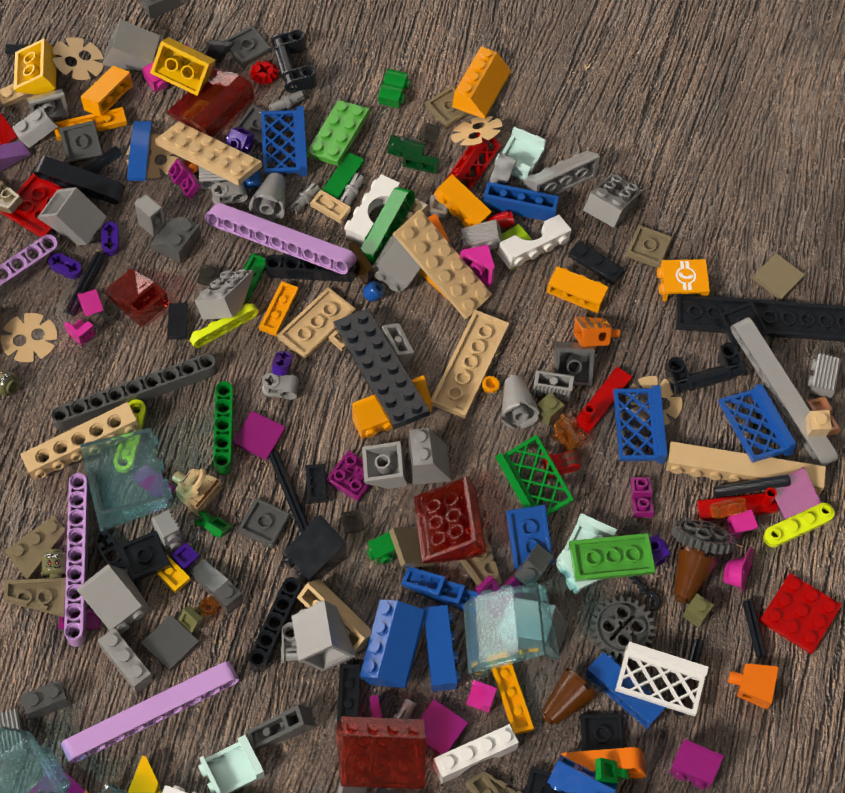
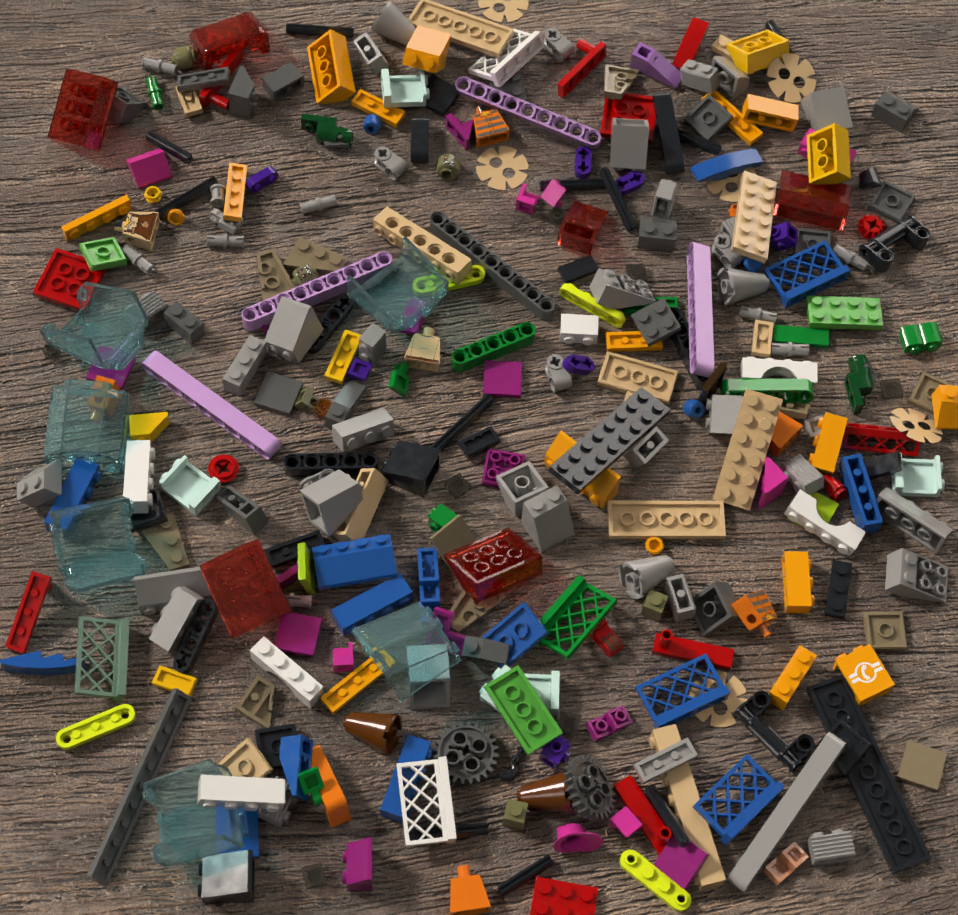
camera: 65 degrees right, 0 degrees up
(123, 254) = (617, 199): none -> black axle
(144, 556) = (341, 338): black tile -> none
(184, 177) = (721, 210): magenta slope -> none
(192, 491) = (415, 345): tan piece -> none
(230, 719) = (222, 461): none -> red gear
(243, 347) = (579, 329): none -> white brick
(256, 578) = (363, 430): none -> light grey brick
(264, 523) = (422, 418): dark grey tile -> none
(273, 279) = (656, 322): none -> dark grey plate
(381, 691) = (306, 568): none -> lime tile
(566, 434) = (634, 638): clear orange hips -> none
(601, 731) = (356, 775): black tile -> none
(663, 333) = (791, 677): none -> light orange brick
(704, 463) = (665, 760): none -> light grey plate
(728, 507) = (633, 802): clear orange beam -> none
(818, 423) = (763, 851): tan brick -> none

